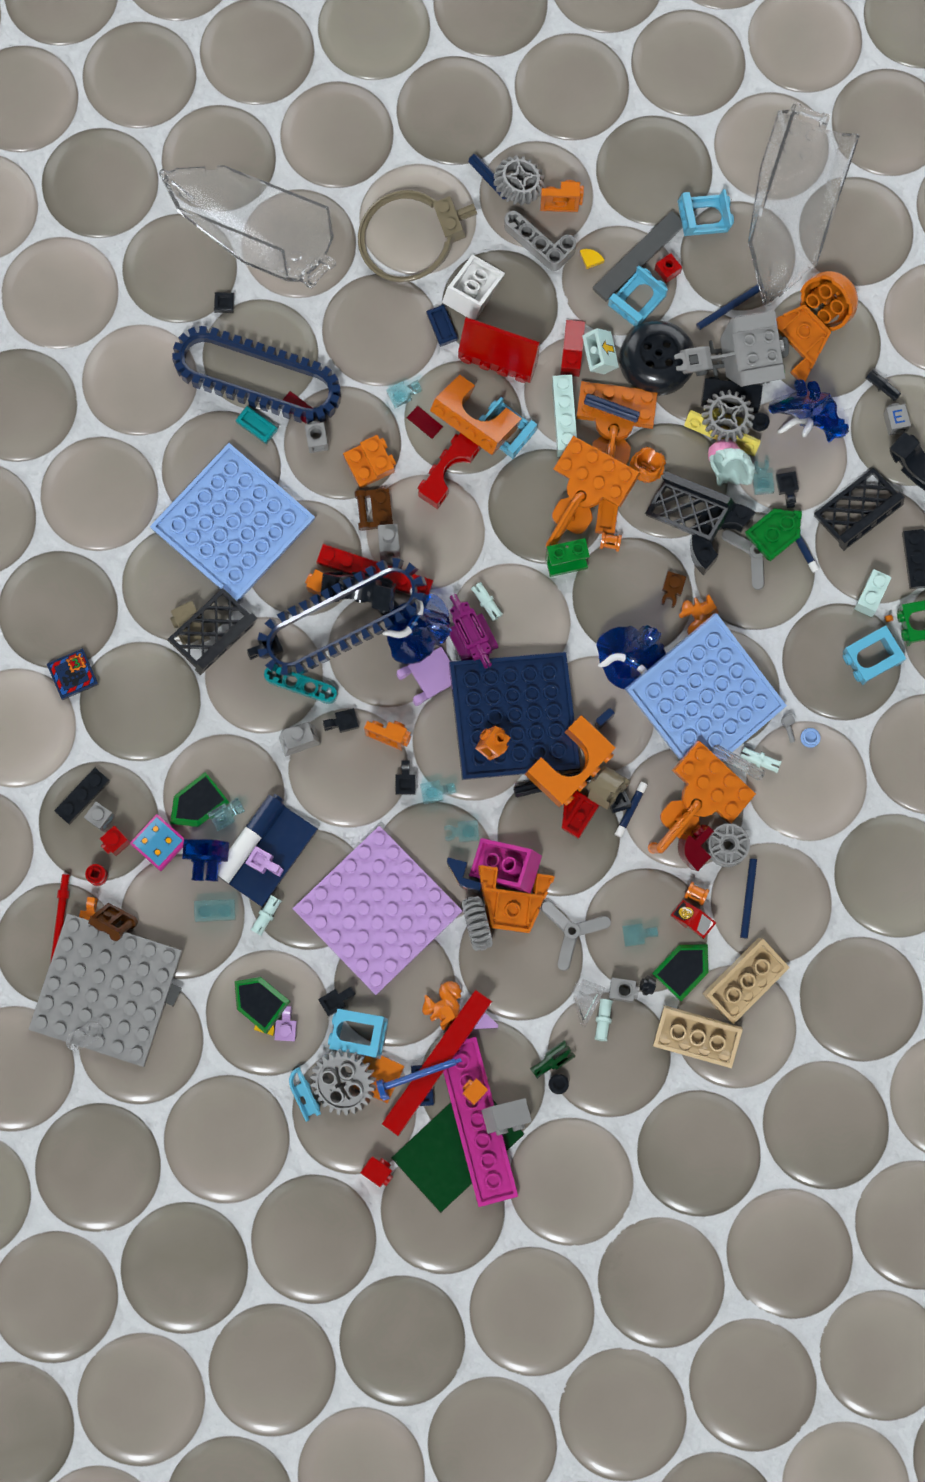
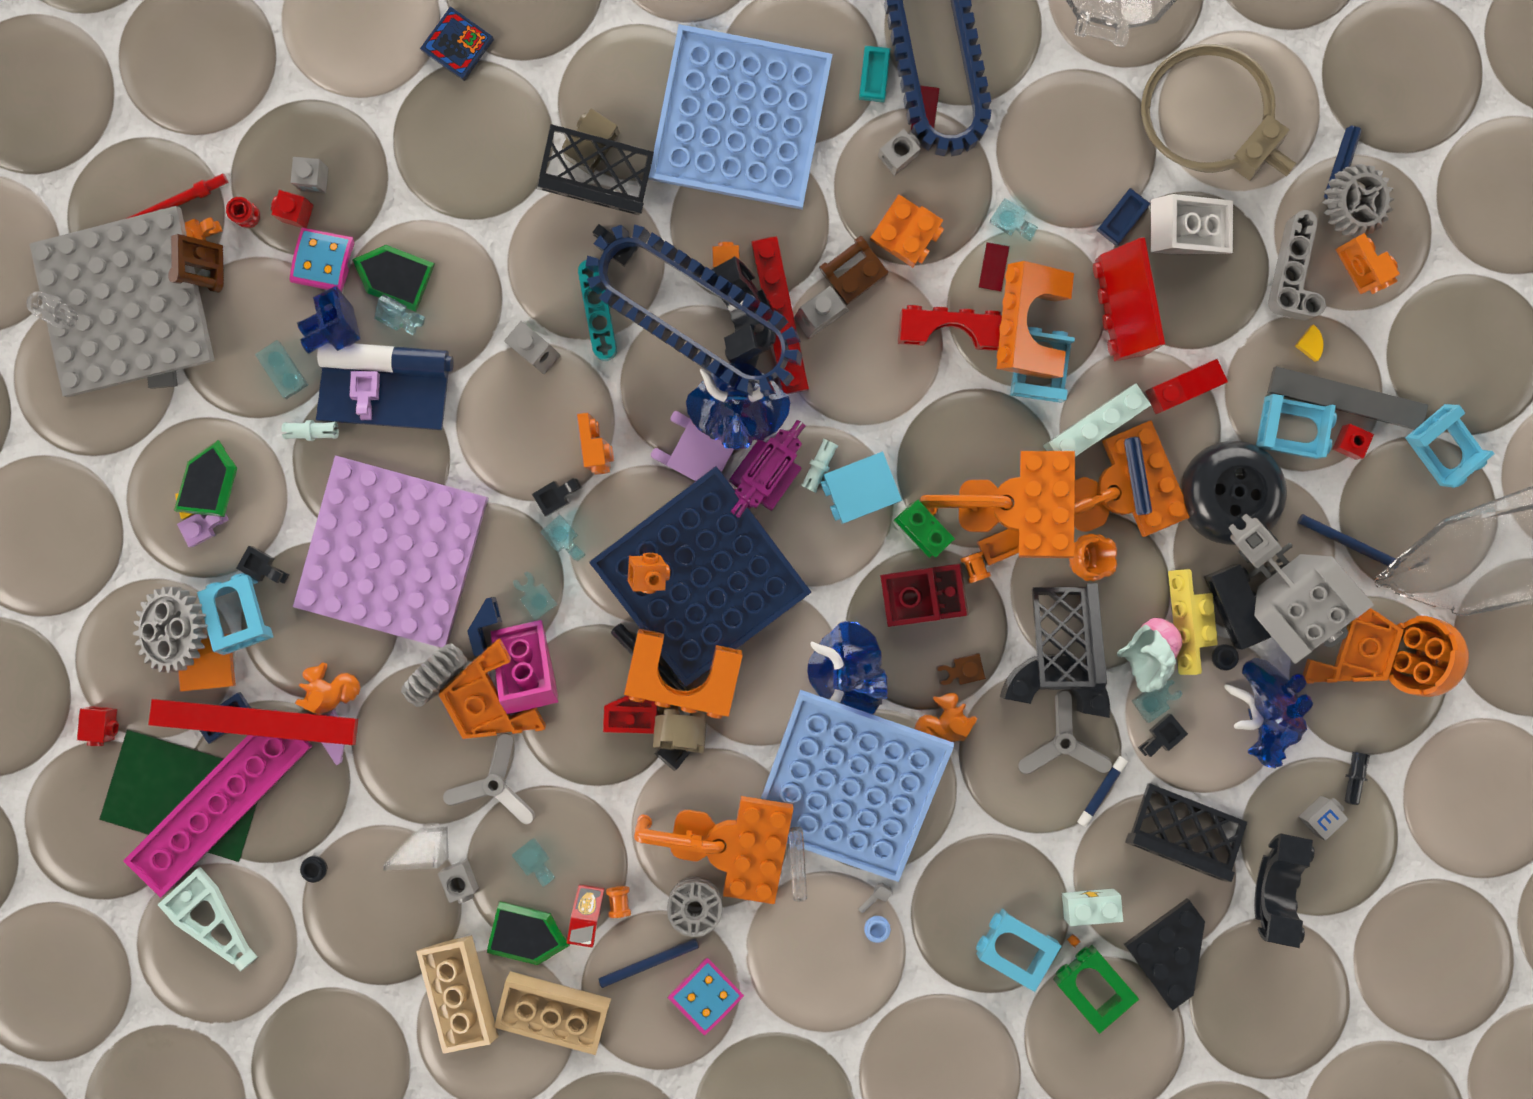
camera: 55 degrees right, 10 degrees up
(82, 796) = (325, 141): black plate -> none
(304, 1090) = (140, 587): medium azure piece -> none
(345, 721) = (584, 385): black plate -> none
(383, 1087) = (190, 678): blue piece -> none
(474, 1091) = (242, 783): orange plate -> none
(506, 1116) = (237, 835): light grey brick -> none
(517, 583) = (860, 488): none -> medium azure panel
(527, 1174) = (190, 894): none -> light aqua plate
(553, 1059) = (335, 848): dark green arm -> none
(600, 351) = (1201, 421): light aqua brick -> none
(603, 1020) = (411, 879): light aqua pin -> none
(604, 718) = (760, 680): dark blue tile -> none
(609, 583) = (924, 595): none -> dark red slope
(629, 812) = (666, 771): dark blue bar -> none
(647, 985) = (481, 906): black plate -> none
(690, 847) = (665, 867): dark red brick -> none
(740, 406) = (1228, 629): light grey gear -> none
(761, 760) = (817, 887): light aqua pin -> none
(775, 532) = (1099, 753): green tile -> none
(791, 873) = (705, 996): none -> dark azure slope

